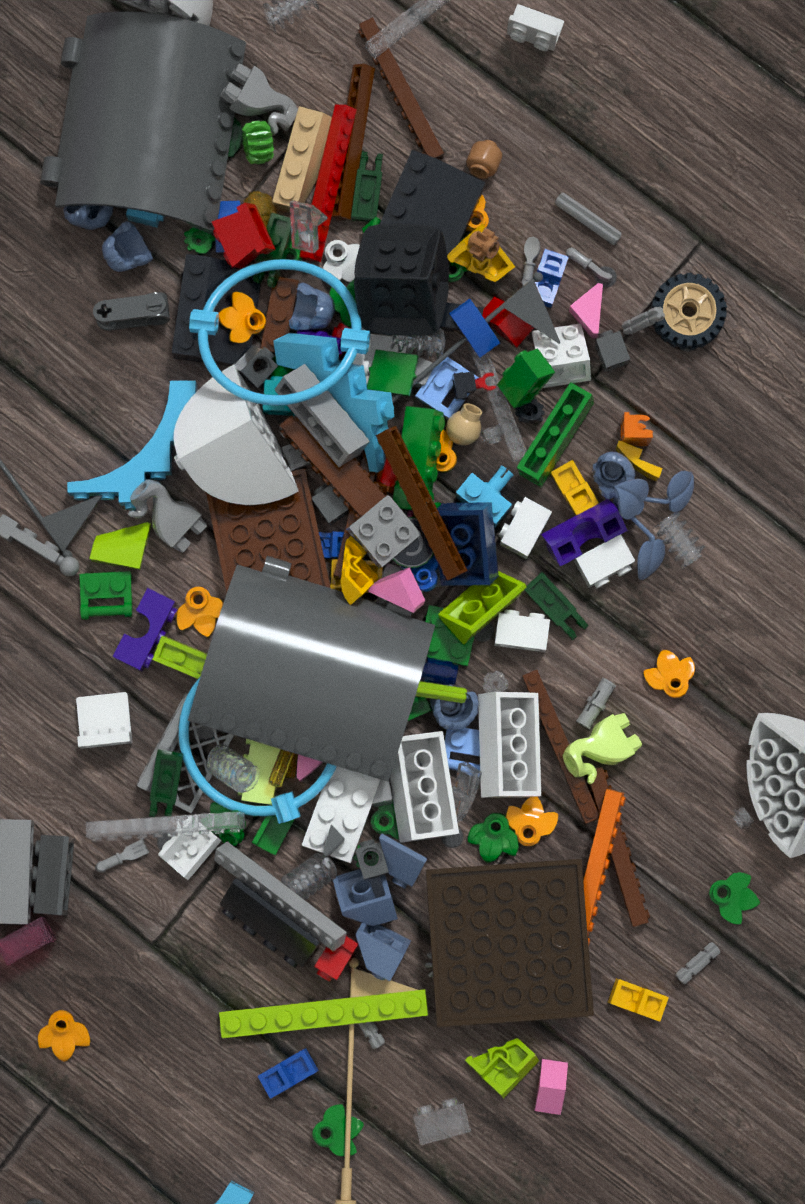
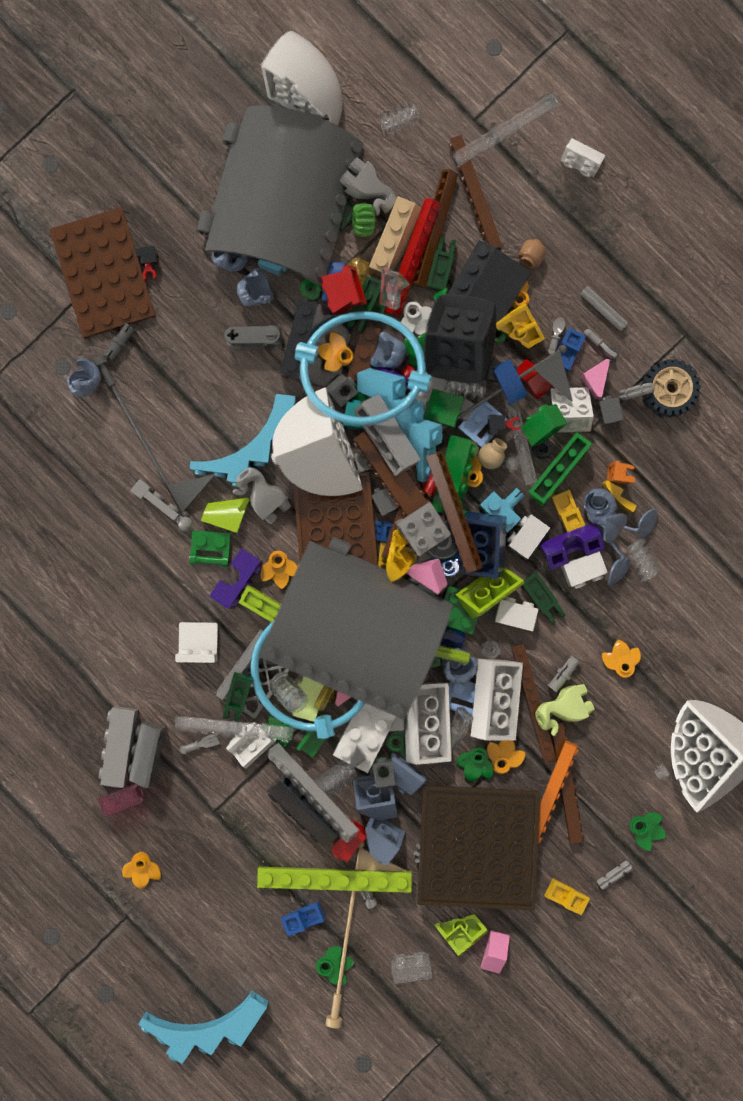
camera: 10 degrees right, 5 degrees up
(483, 244) = (524, 319): medium nougat gear -> none

